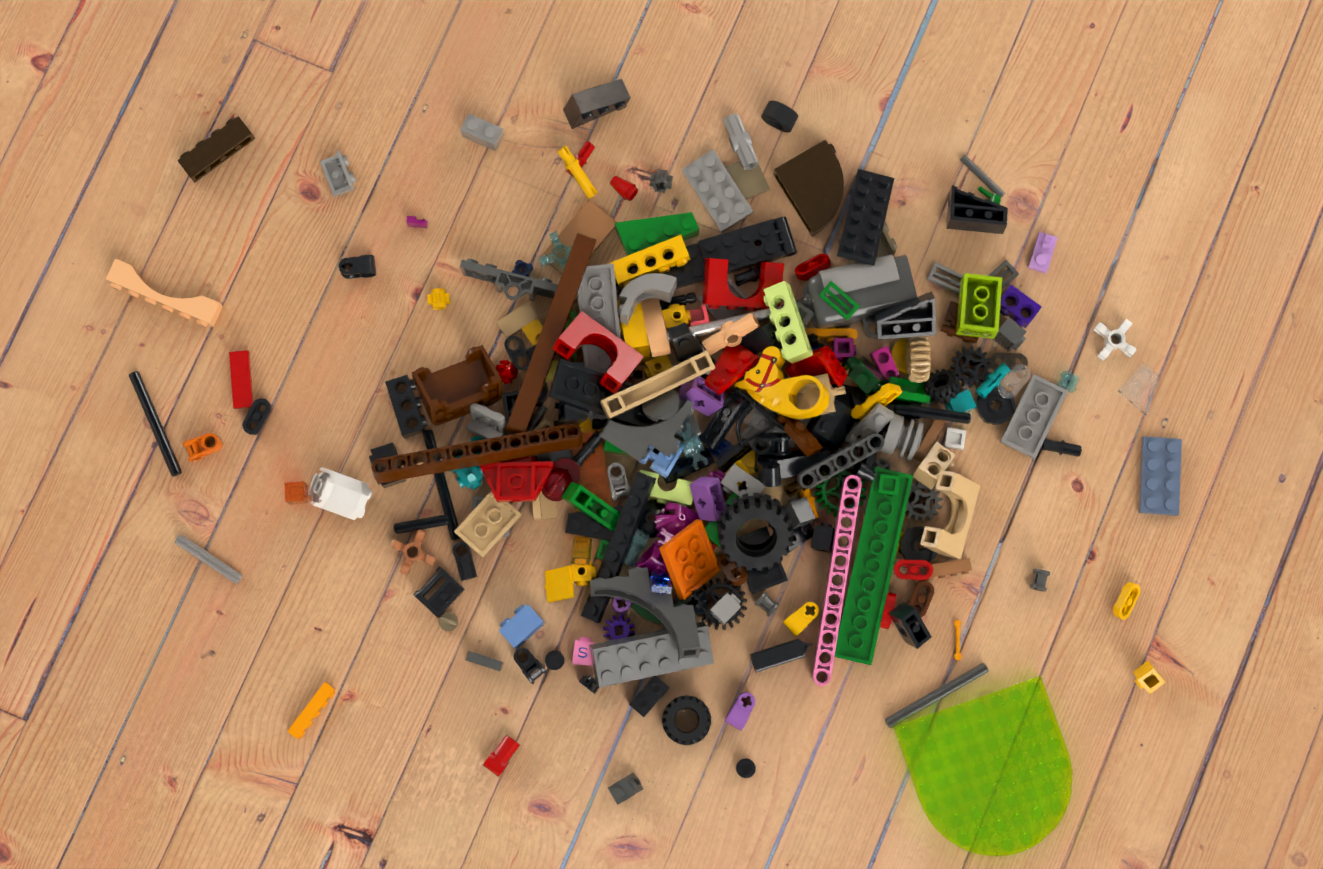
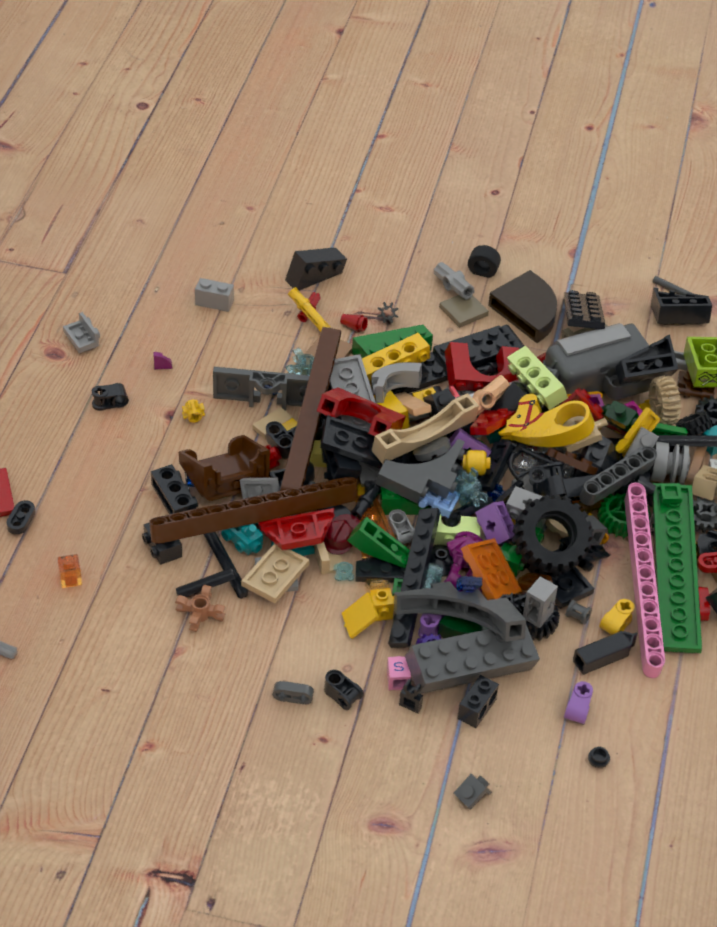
camera: 10 degrees left, 35 degrees down
(312, 710) = (108, 760): light orange piece -> none
(339, 494) = (115, 563): white brick -> none
(443, 597) = (237, 644): black plate -> none
(448, 621) = (247, 665): dark tan tile -> none
(464, 563) = (255, 608): black piece -> none
(499, 759) = (327, 779): red piece -> none
(521, 626) = (328, 650): medium blue brick -> none
(554, 660) = (369, 685): black plate -> none
(559, 520) = (344, 567): none -> clear light blue plate
(698, 707) = (521, 730): black tyre -> none
(703, 421) = (476, 459): none -> yellow head
(717, 190) = (441, 315): light grey plate -> none
(822, 537) = (619, 552): black brick -> none
(844, 295) = (579, 357): green tile -> none

